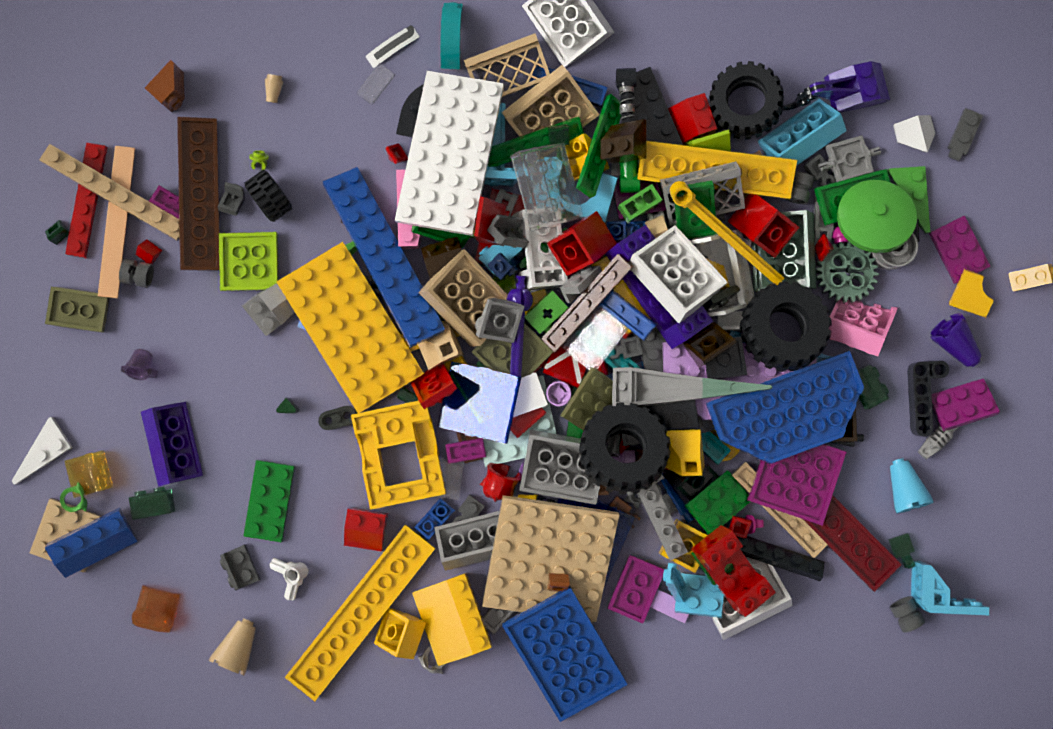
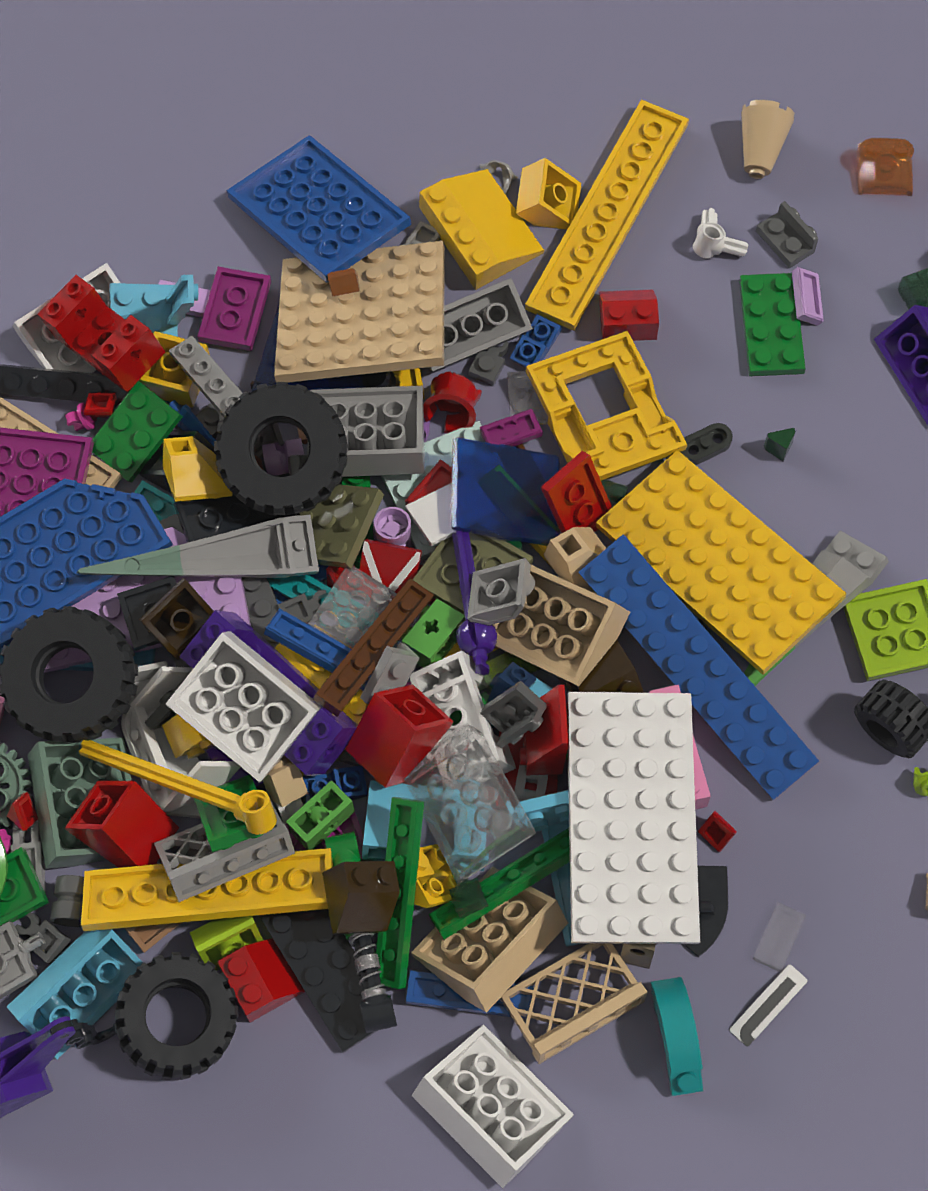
camera: 170 degrees right, 20 degrees down
(239, 515) = (807, 296): none -> lavender tile

